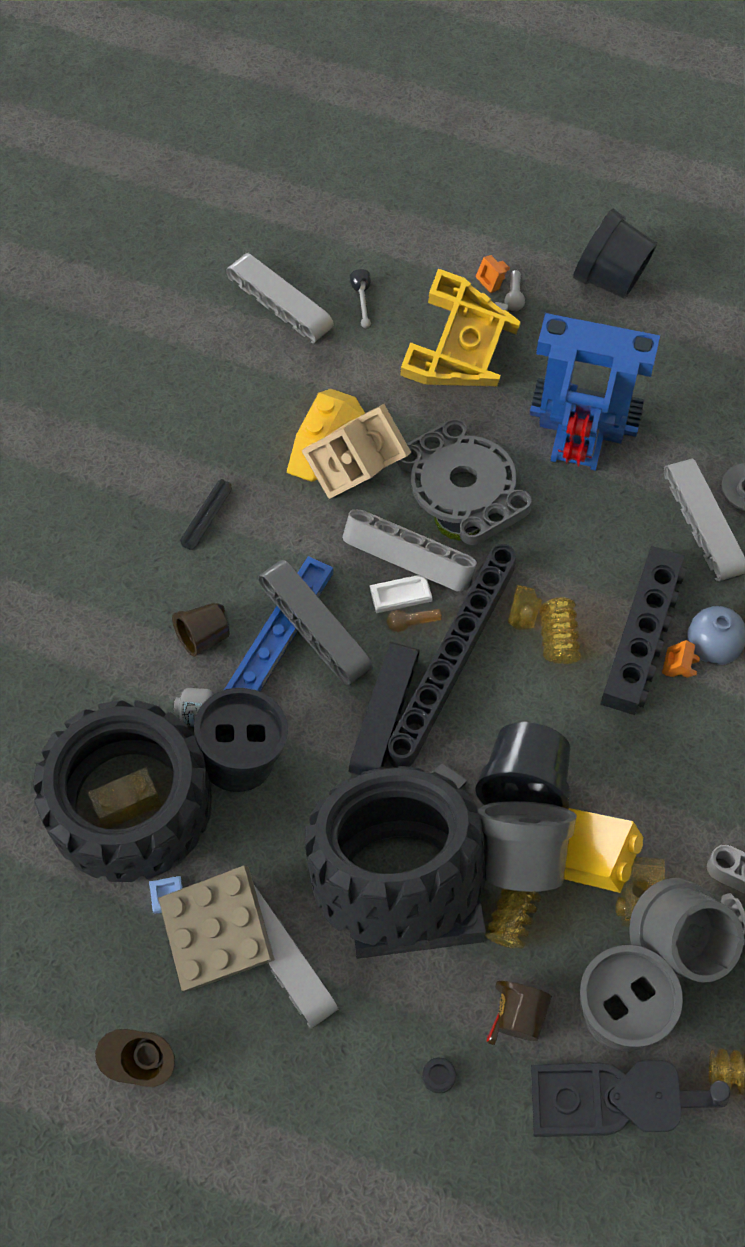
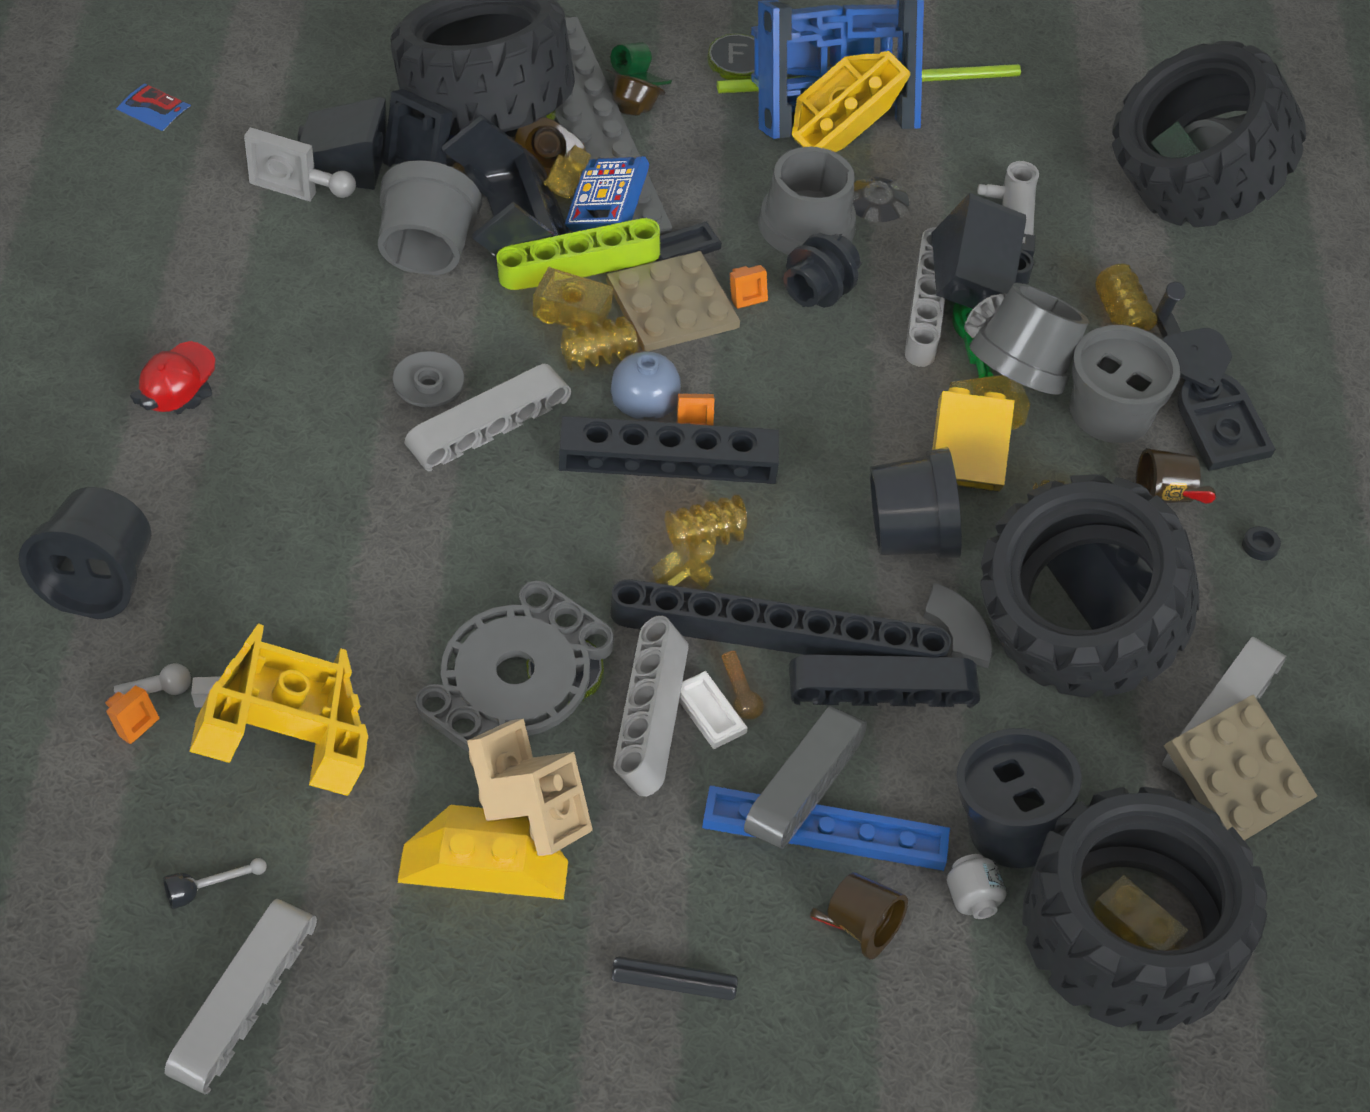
camera: 115 degrees left, 10 degrees down
(526, 844) = (993, 458): dark grey piece -> none
(580, 411) = (388, 505): blue container -> none

